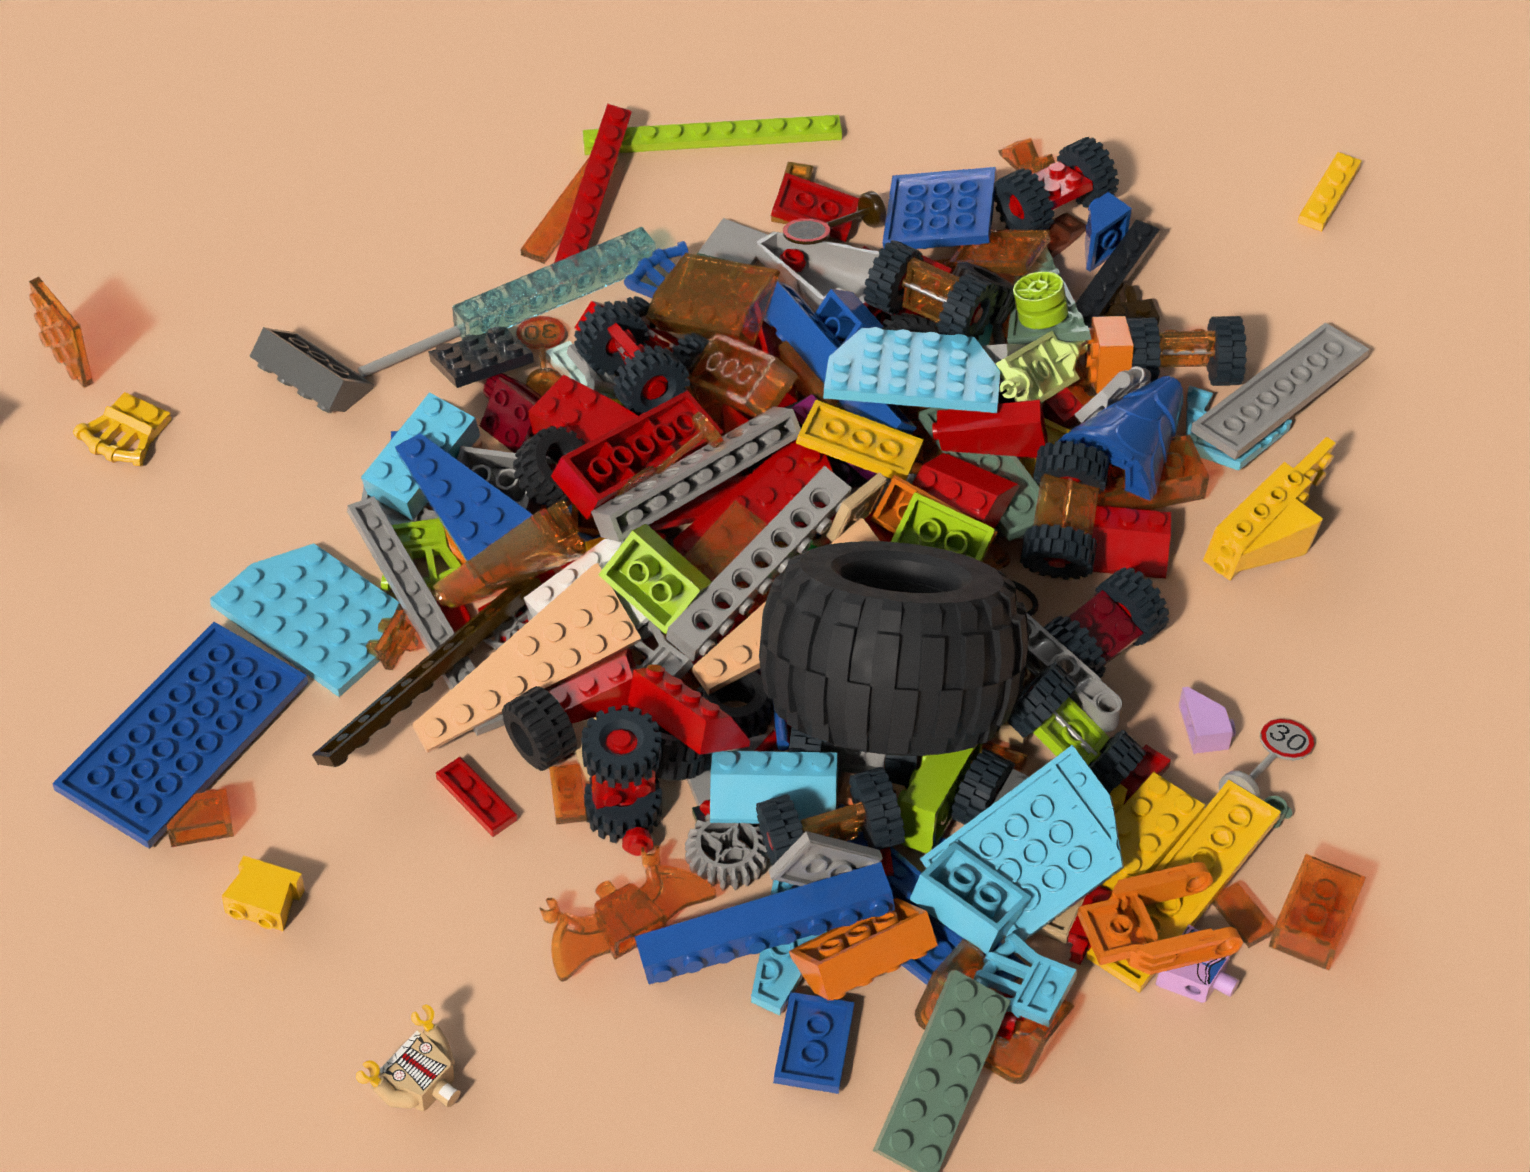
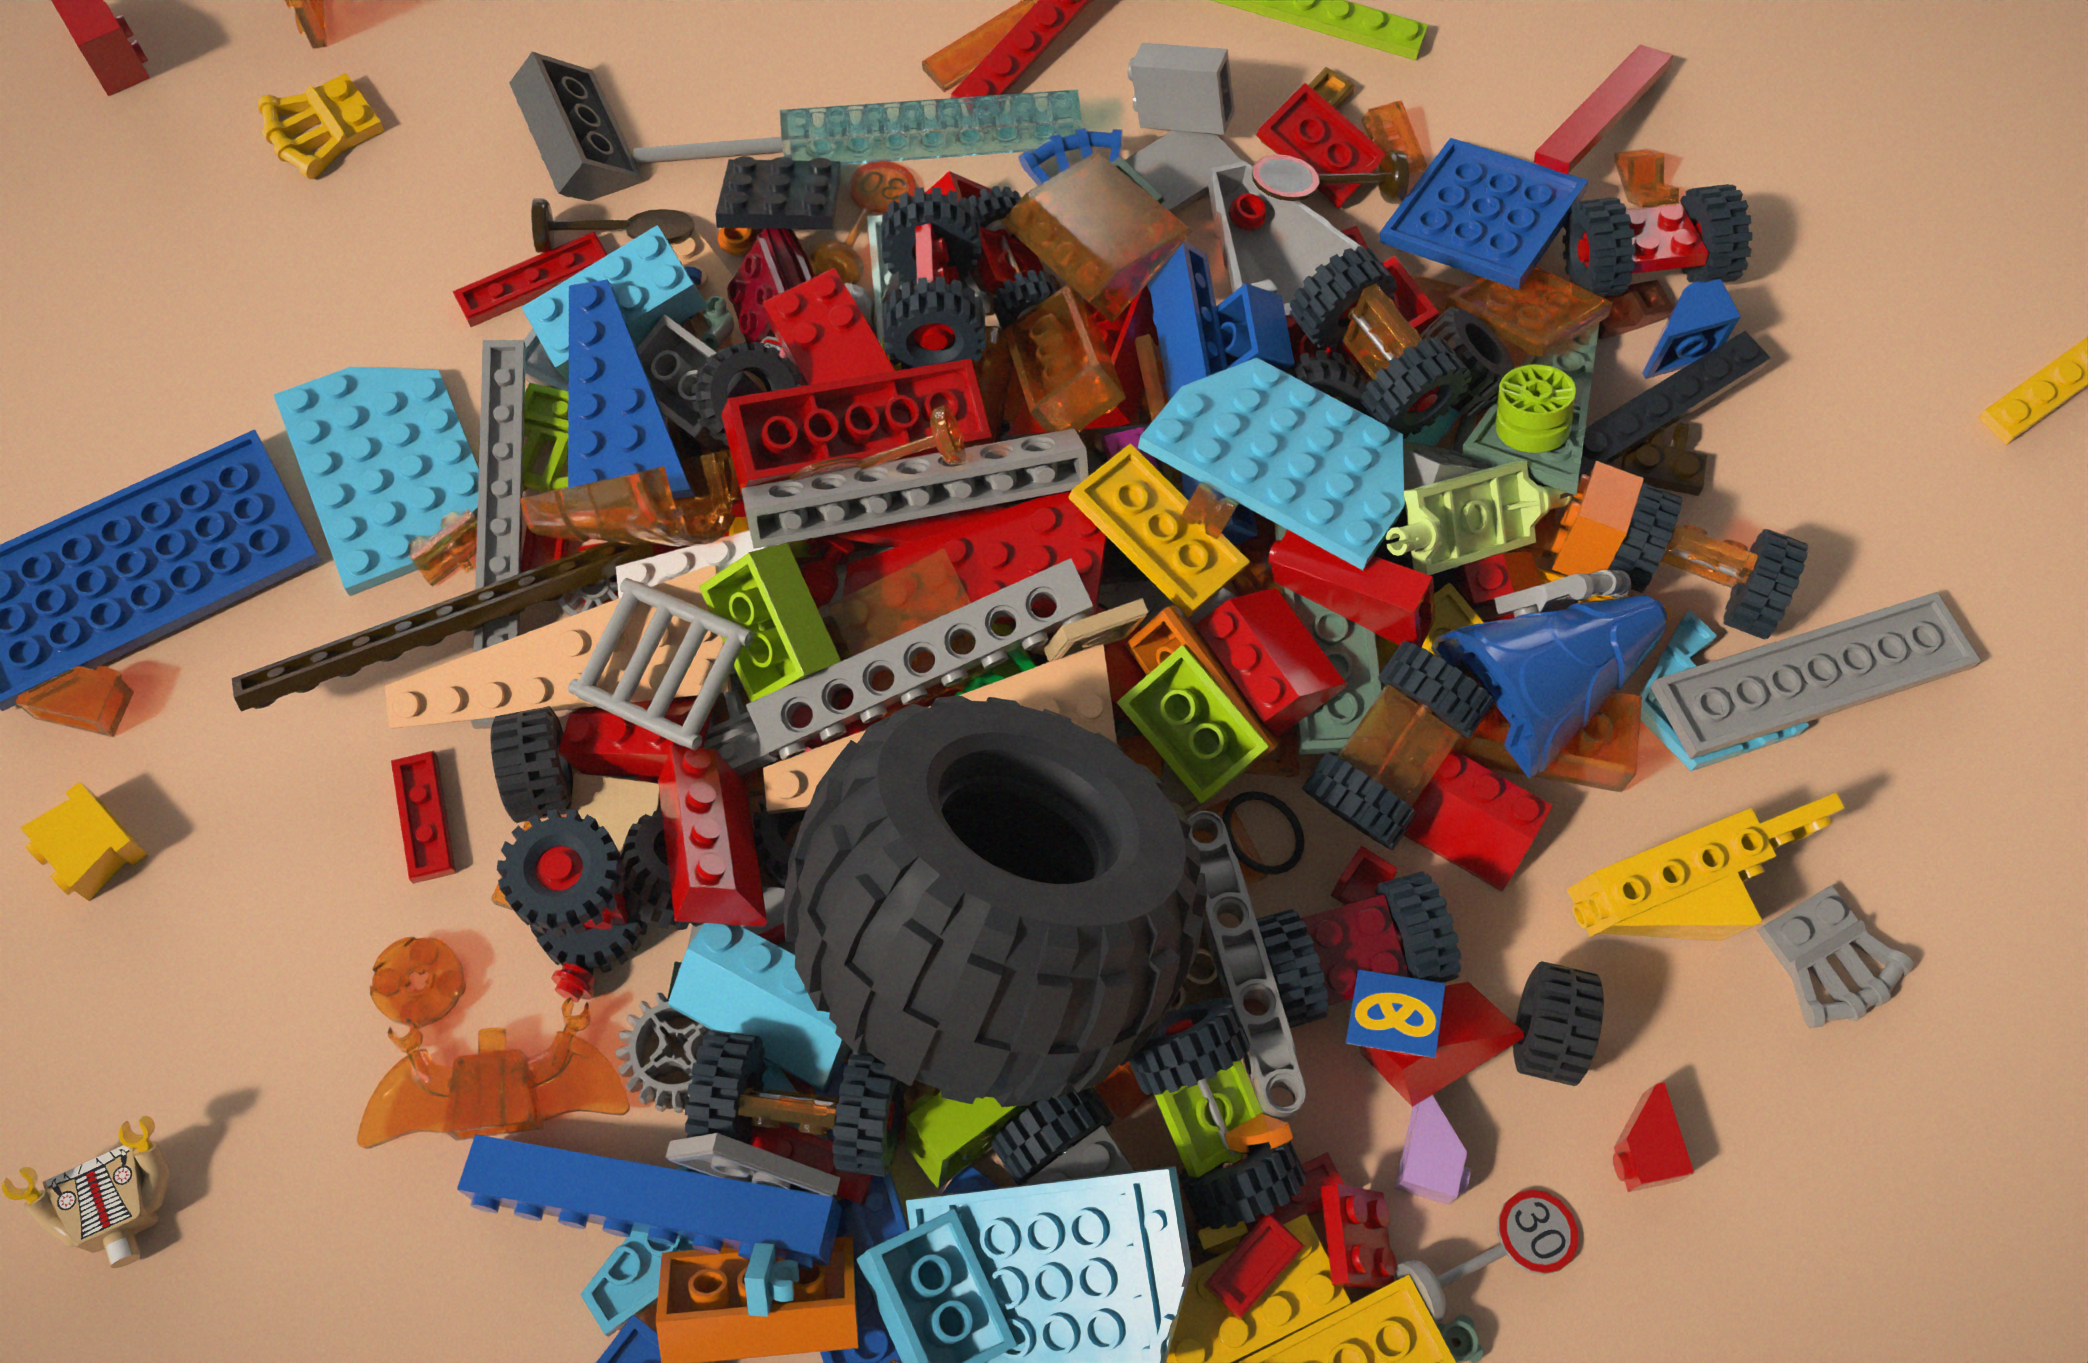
camera: 25 degrees right, 15 degrees up
(332, 432) = (672, 223): none -> dark brown piece
(339, 470) = (527, 279): none -> red tile
(464, 396) = (736, 247): none -> orange plate
(487, 441) = (718, 321): none -> sand green arm
(540, 865) = (442, 987): none -> clear orange plate
(612, 657) = (653, 718): none -> light grey bar
(709, 202) = (1182, 88): none -> light grey brick
(856, 179) = (1397, 115): none -> clear orange slope
(870, 916) = (768, 1280): none -> medium azure tile
(886, 416) = (1207, 510): none -> clear orange wheel
(979, 125) = (1602, 109): none -> tile
(1081, 591) = (1362, 877): none -> red panel
(1104, 732) = (1258, 1130): none -> orange tile
(1140, 804) = (1253, 1265): none -> red tile
(1146, 644) = (1396, 1013): none -> blue sticker
(1168, 662) = (1468, 1036): none -> red slope
(1187, 772) = (1358, 1237): none -> red plate
(1238, 620) = (1559, 1022): none -> black tyre
(1326, 667) = (1651, 1144): none -> red slope
(1353, 533) = (1823, 928): none -> light grey plate

